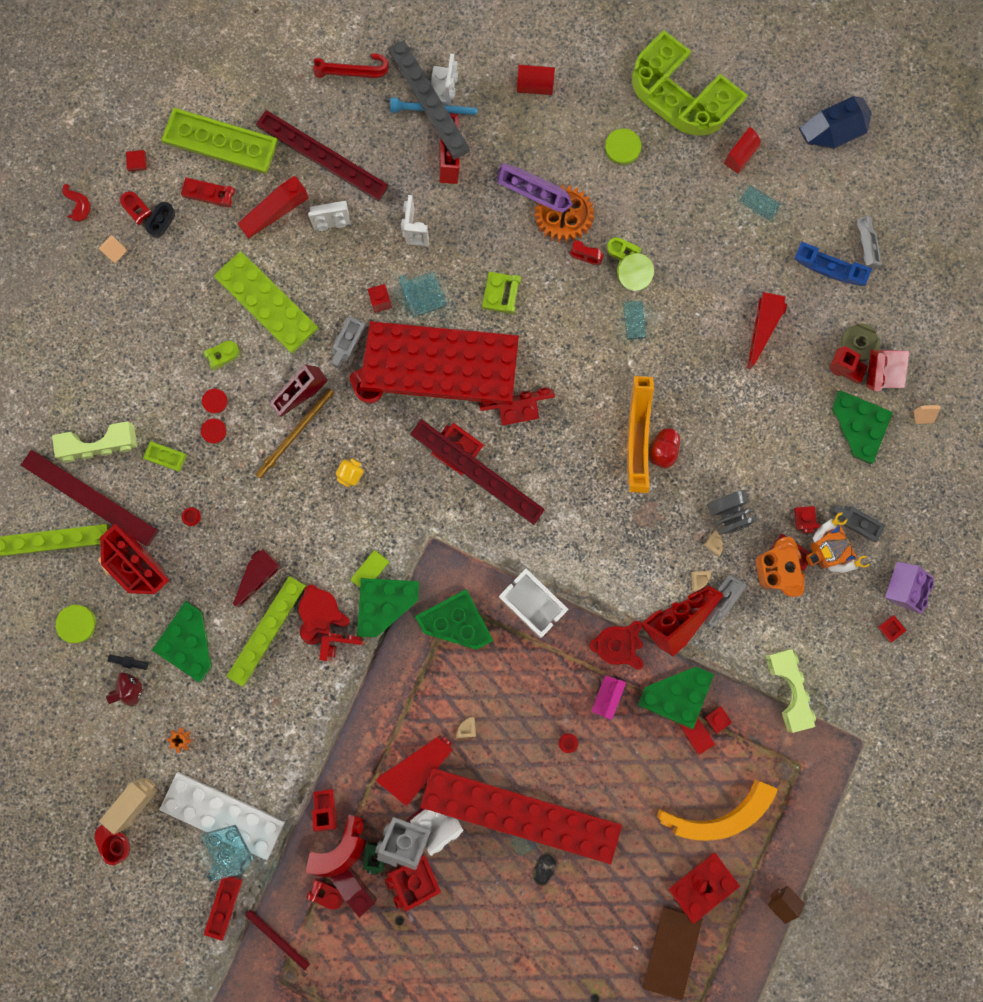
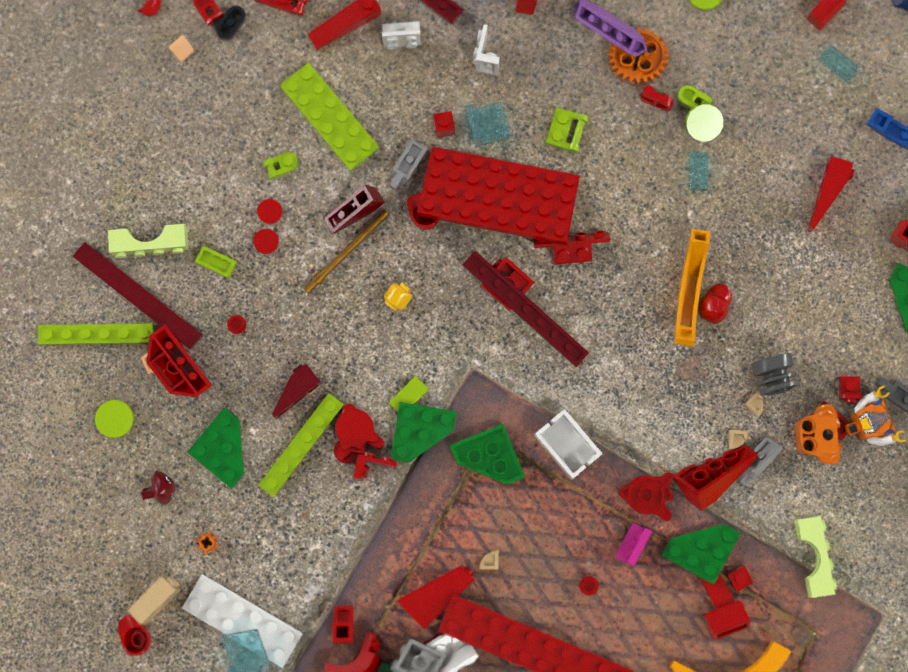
camera: 10 degrees right, 0 degrees up
(128, 662) = (162, 461): black bar -> none
(710, 763) = (727, 620): none -> red brick

